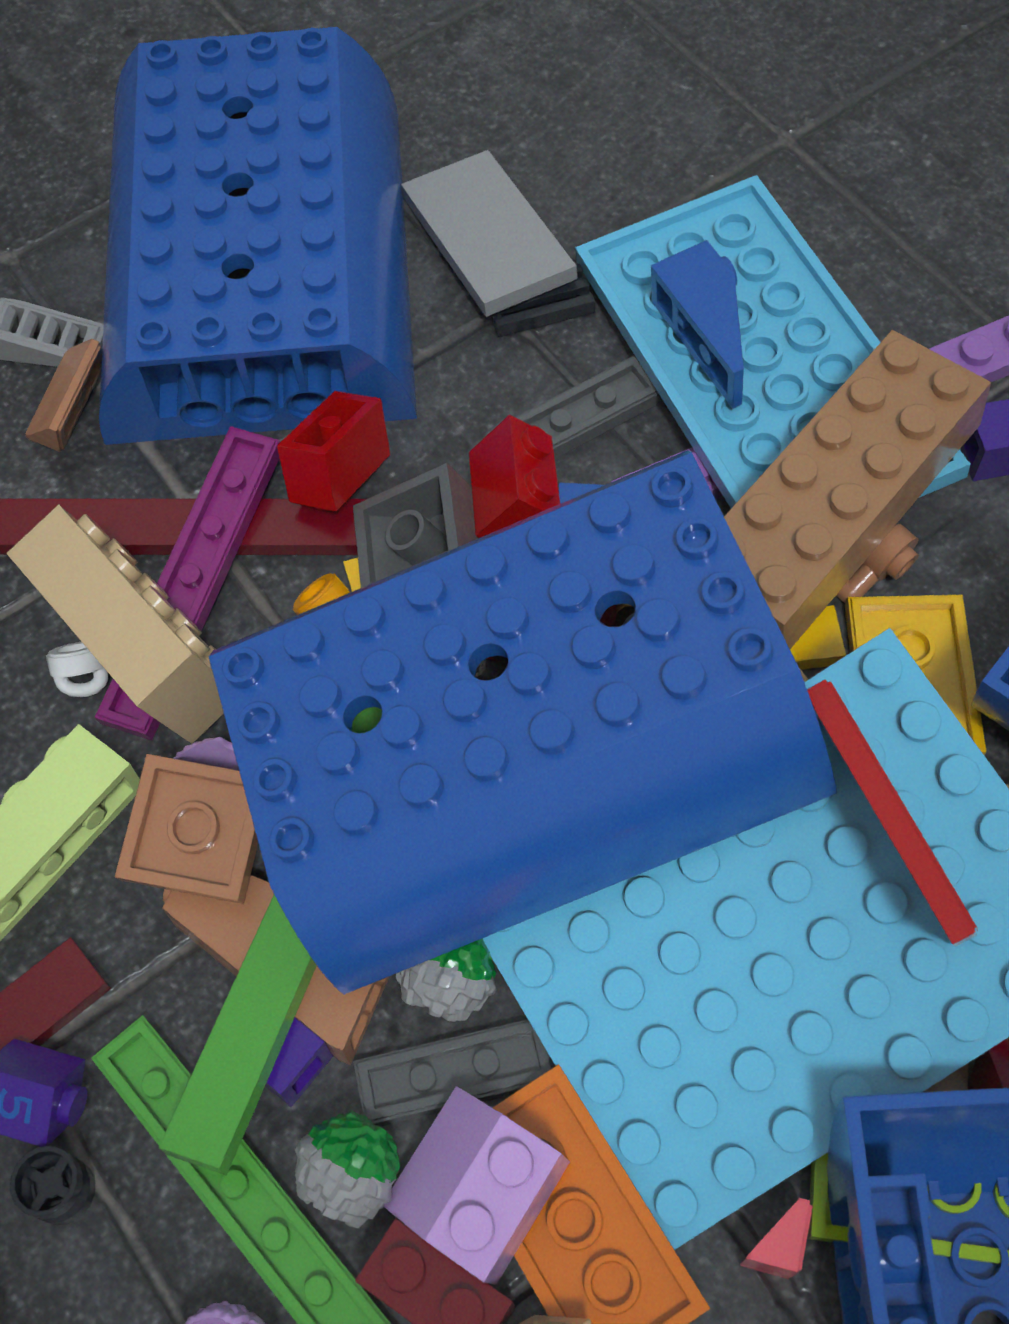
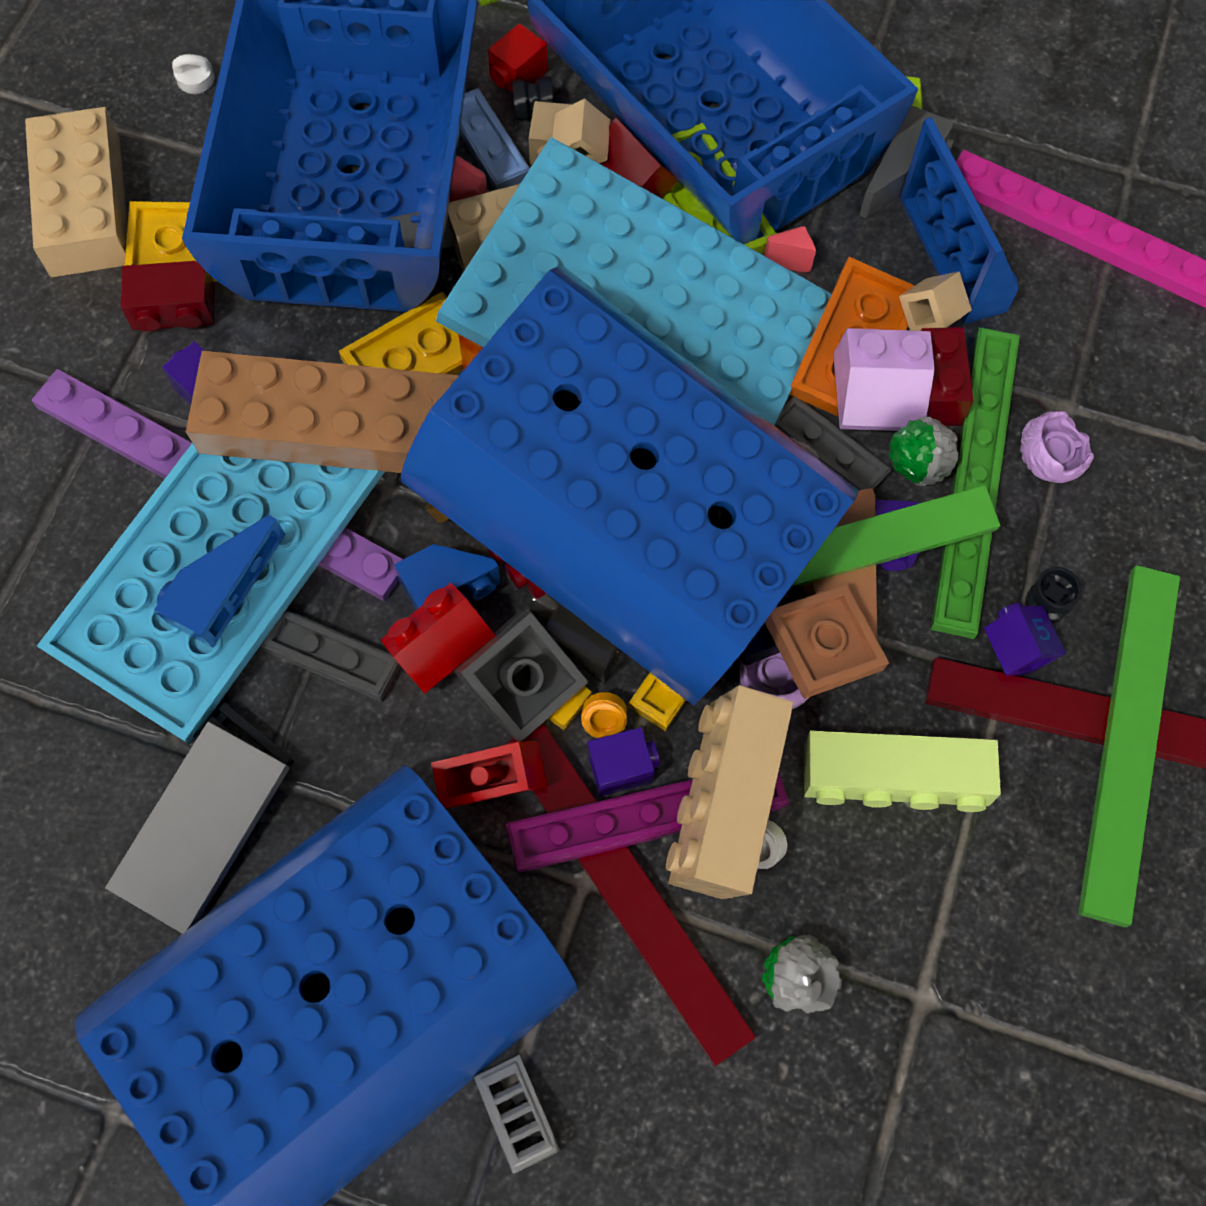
camera: 130 degrees left, 5 degrees up
(66, 395) = (565, 1040): nougat slope -> none
(261, 584) = (622, 761): none -> dark purple brick
(892, 814) = (576, 229): red tile -> none

